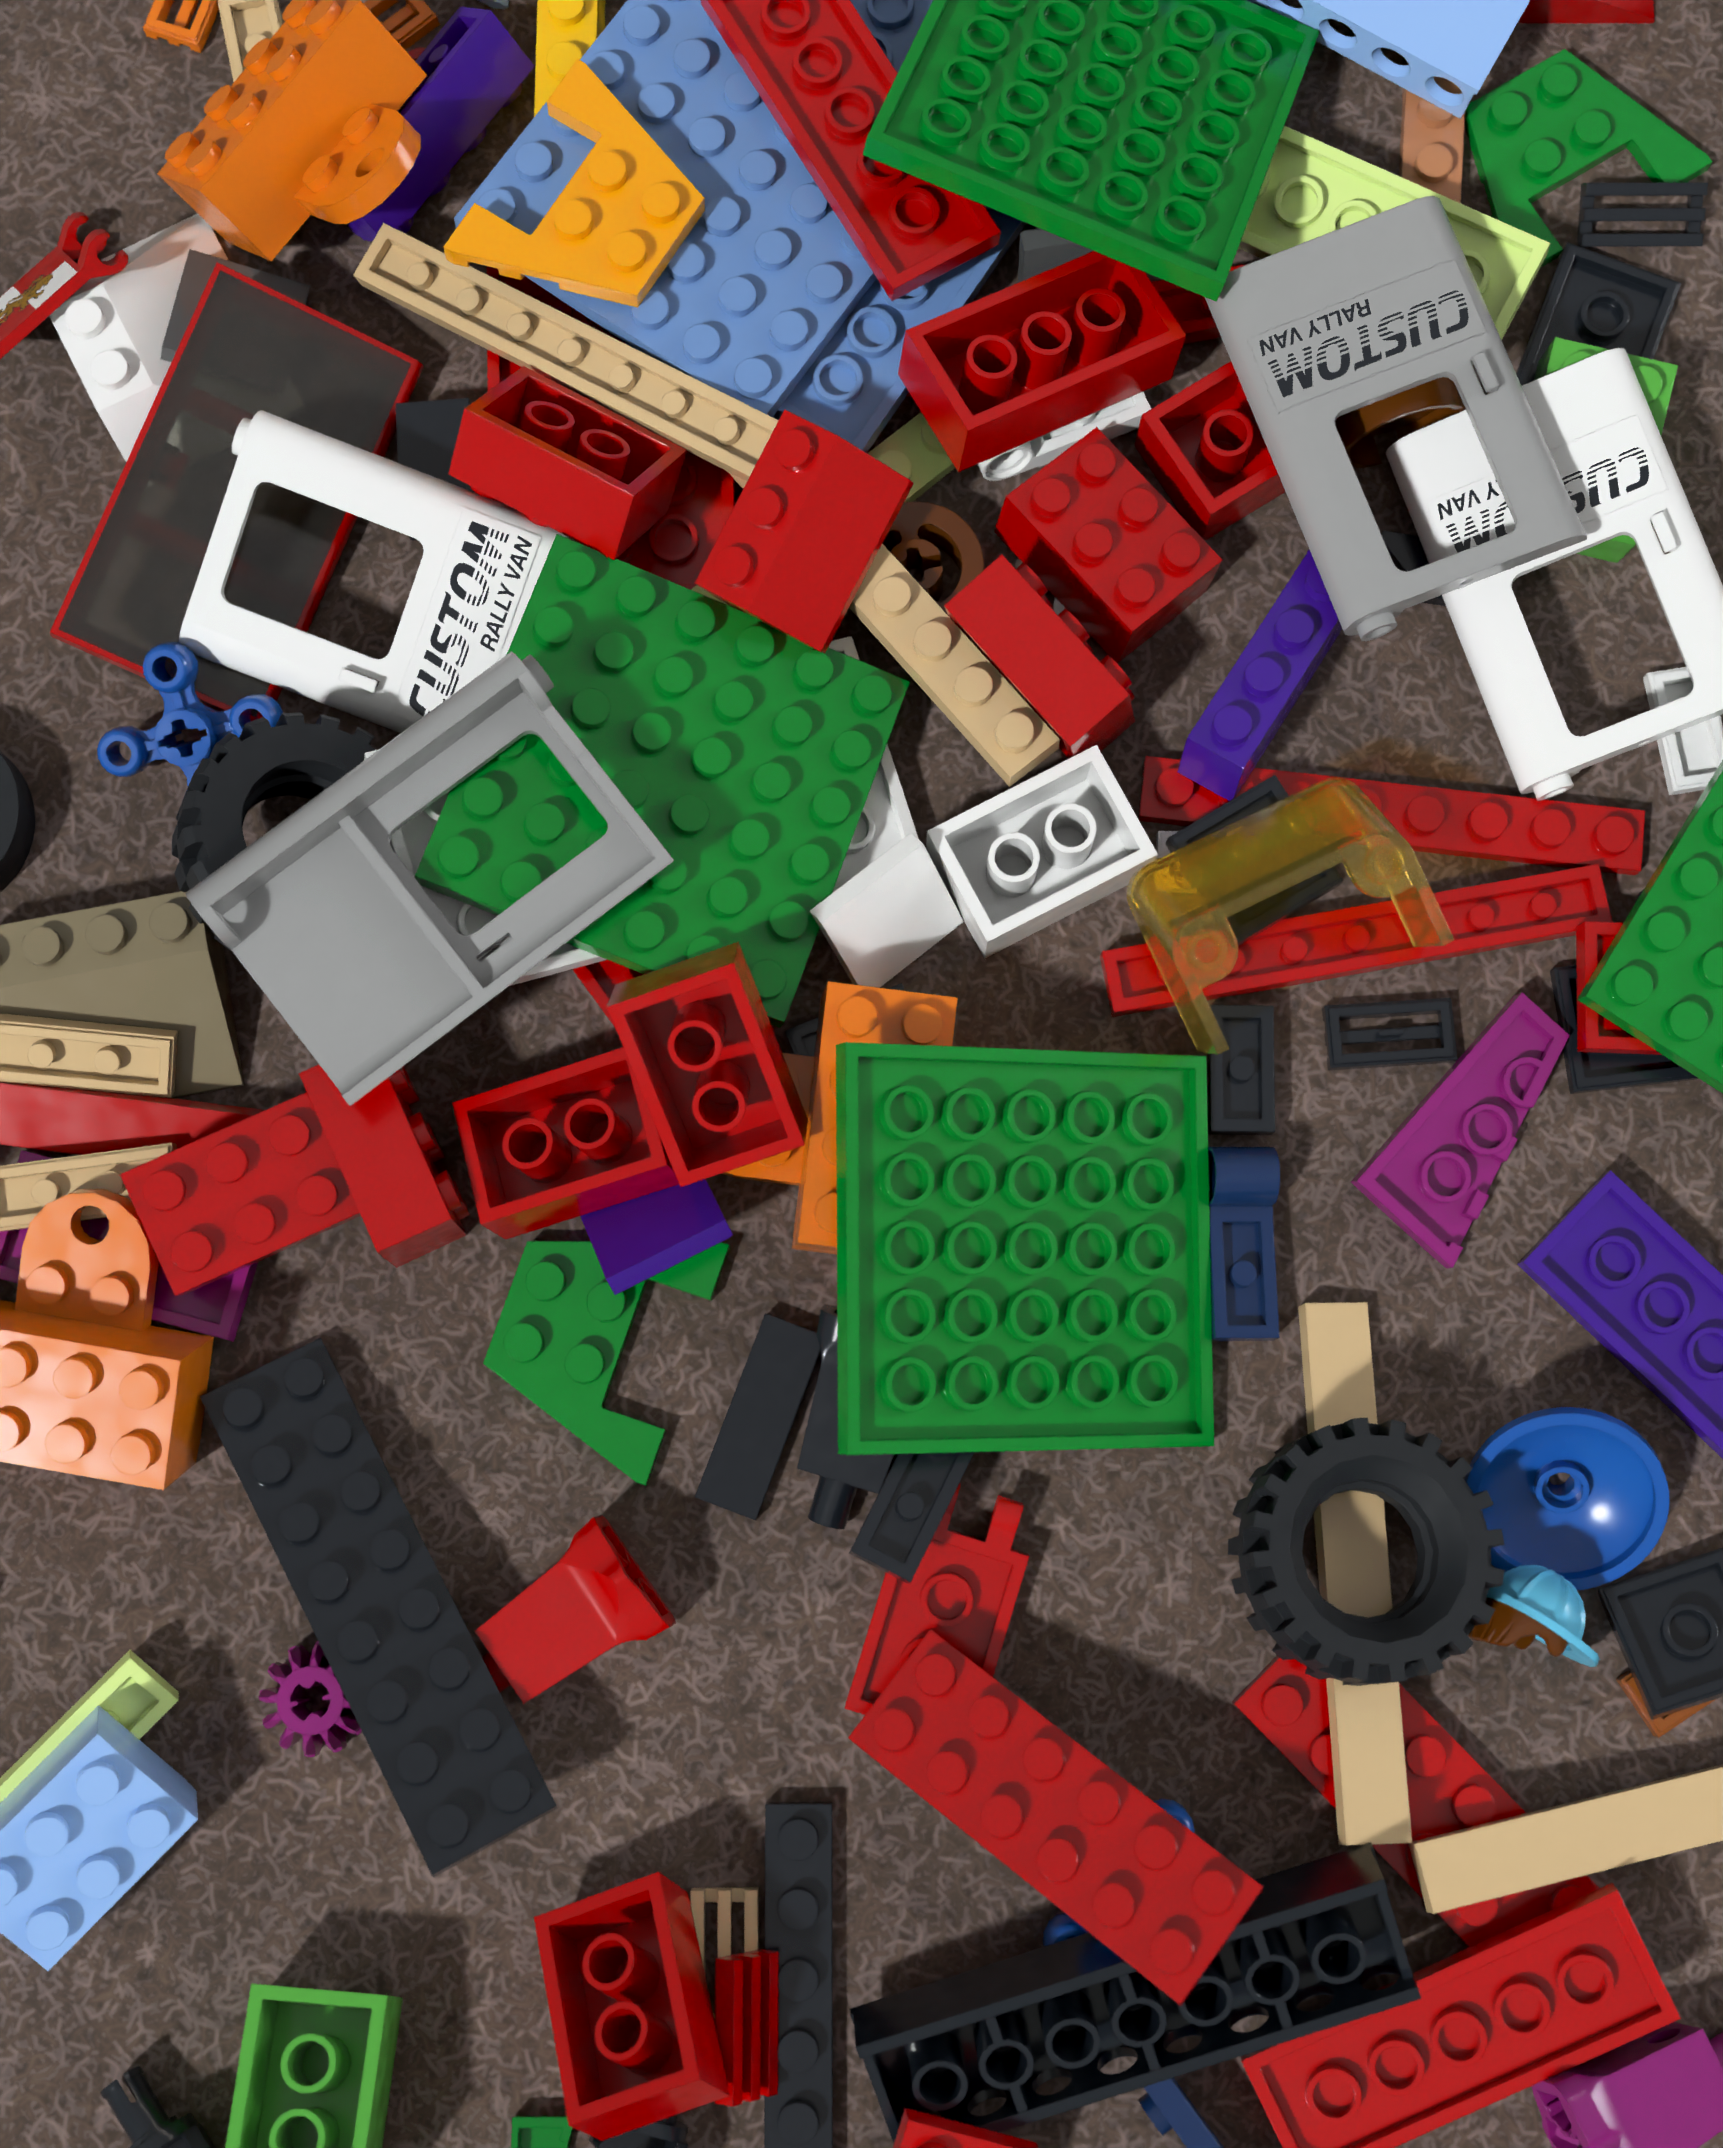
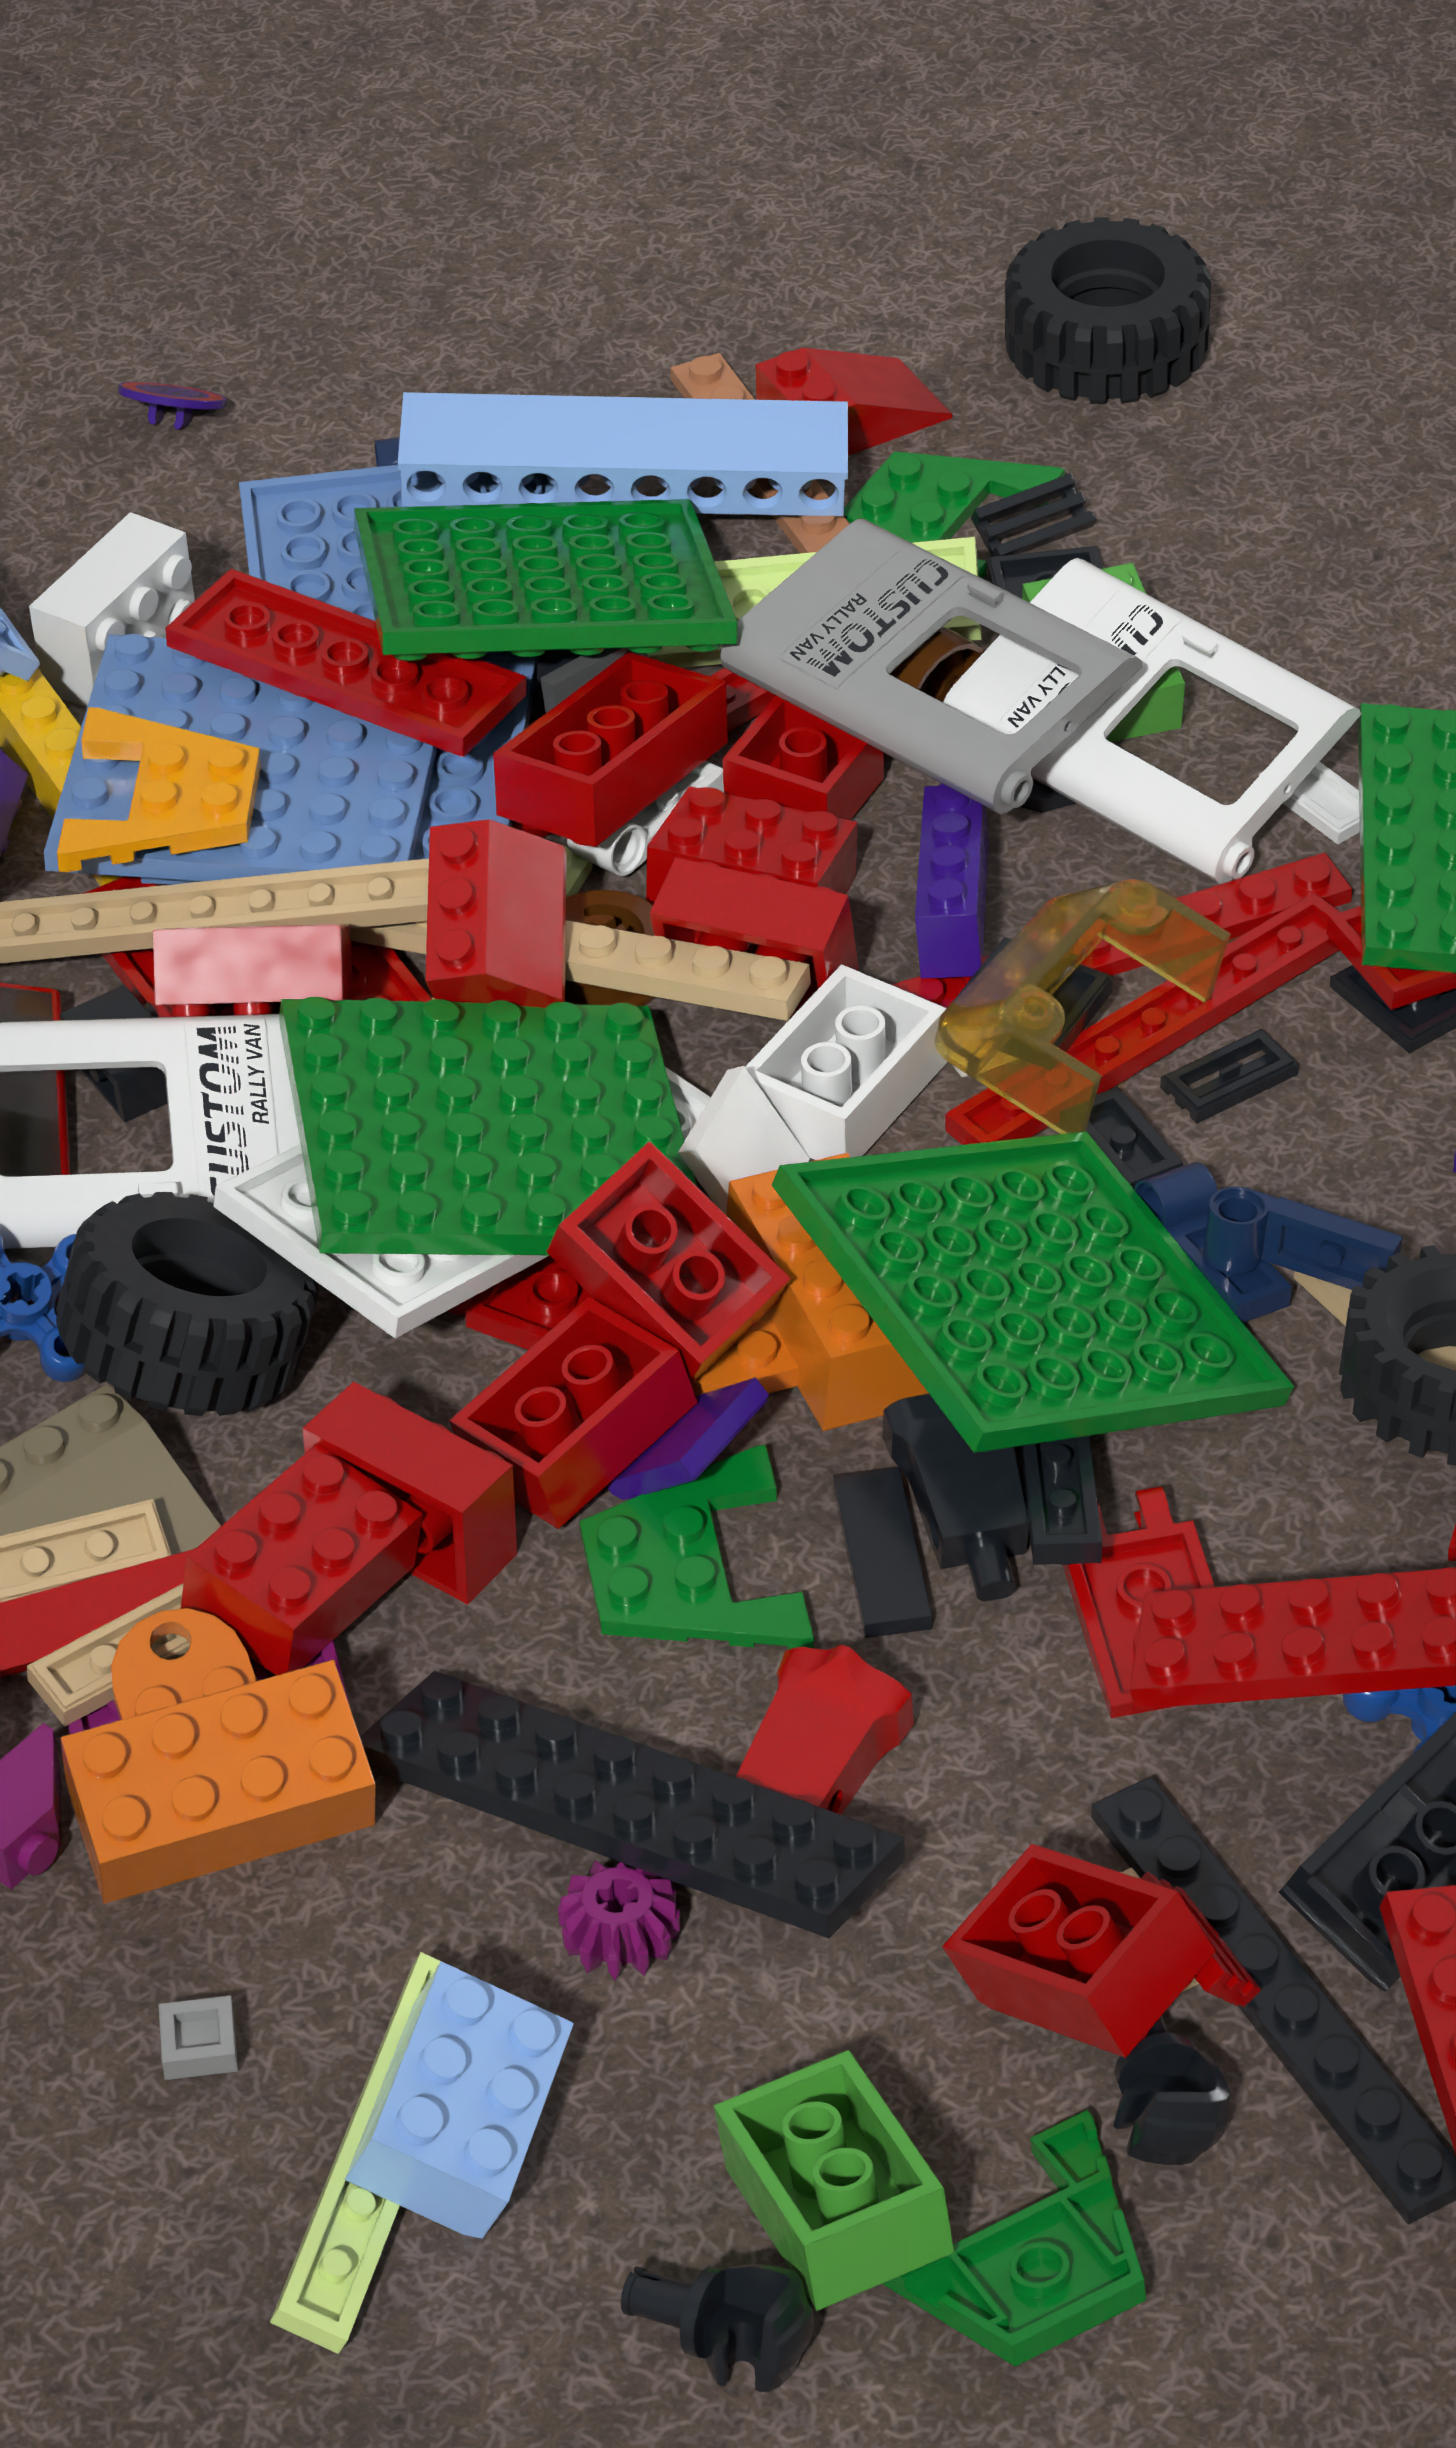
camera: 30 degrees left, 35 degrees down
(351, 935) = (305, 1293): light grey piece -> none
(1313, 1307) = (1257, 1227): none -> dark blue plate
(1450, 1147) = (1339, 1106): magenta wing -> none

